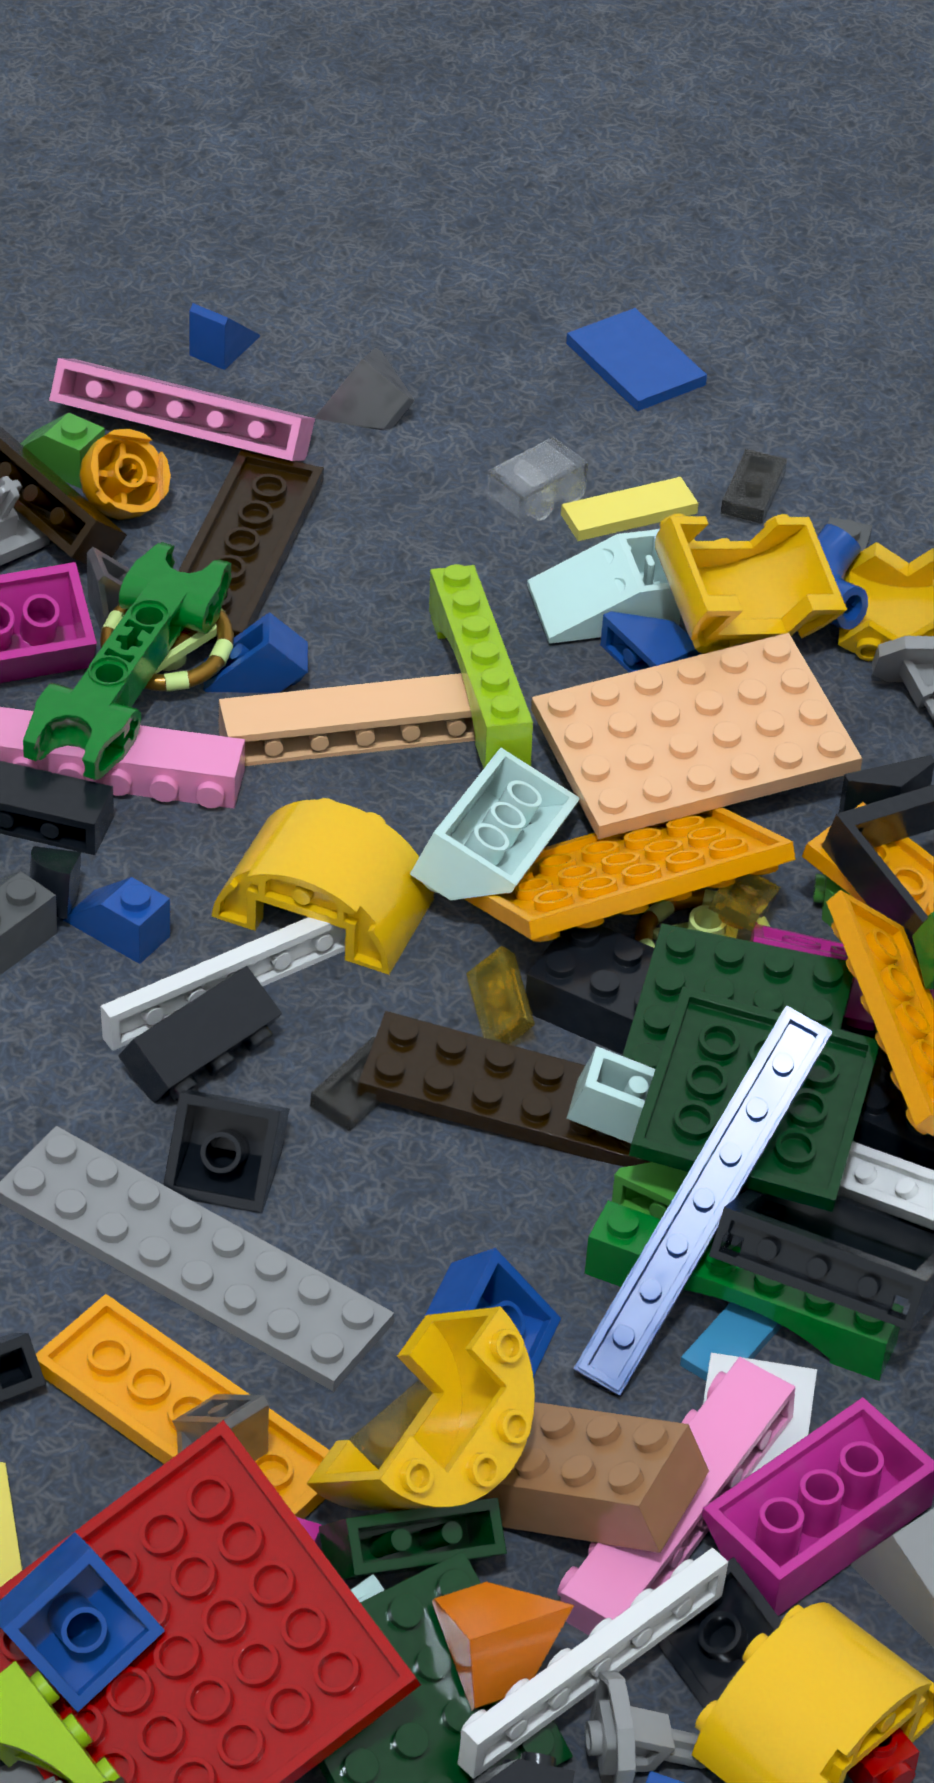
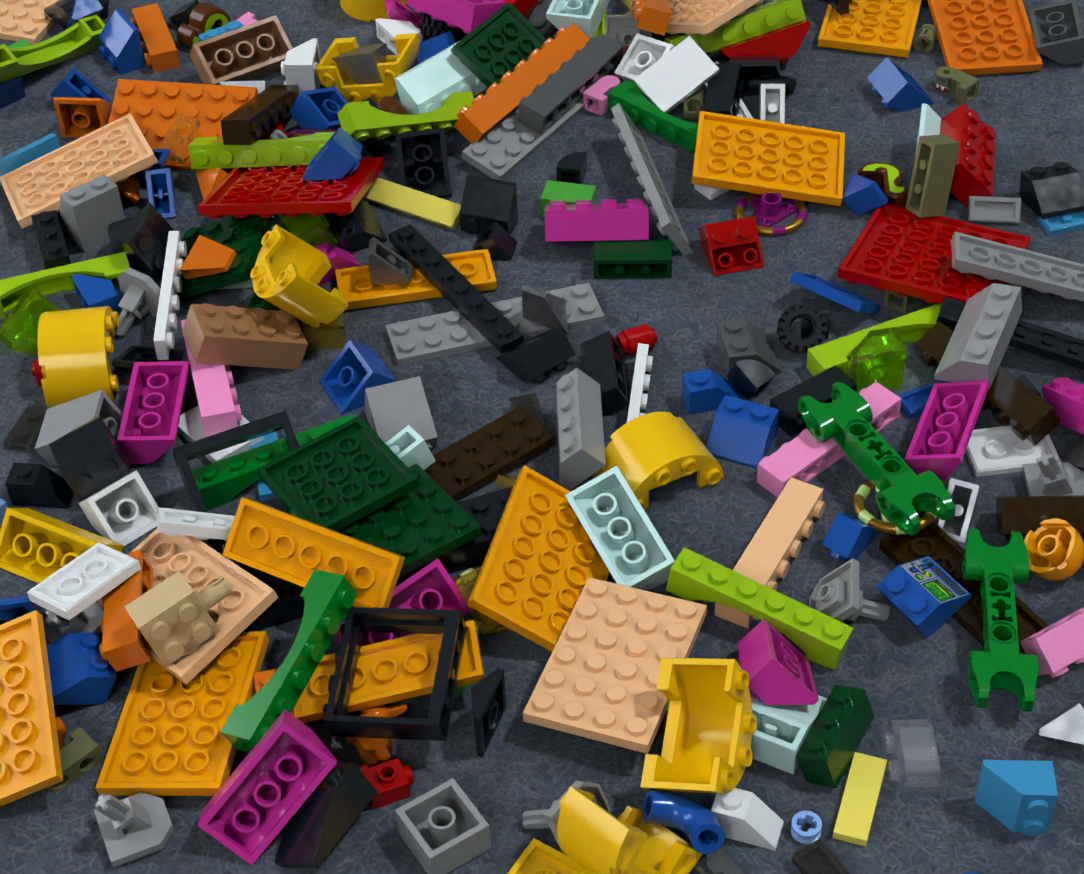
camera: 135 degrees right, 0 degrees up
(82, 1053) = (631, 337): none -> red brick
(125, 1172) = (544, 308): none -> flat silver slope
(169, 842) = (742, 431): none -> blue slope
(176, 1330) = (456, 289): none -> black plate
(224, 499) = (1000, 662): none -> green piece
(304, 552) = (923, 594): none -> blue slope
(346, 987) = (579, 428): none -> light grey slope
(388, 616) = (841, 598): none -> light grey piece
(512, 372) = (1018, 794): none -> dark azure slope
(521, 1201) = (397, 405): none -> light grey slope
(555, 535) = (835, 736): none -> dark green brick
(562, 604) = (776, 668): none -> dark pink slope
(699, 1202) = (309, 431): tile -> none
(718, 525) = (813, 833): none -> light blue bush

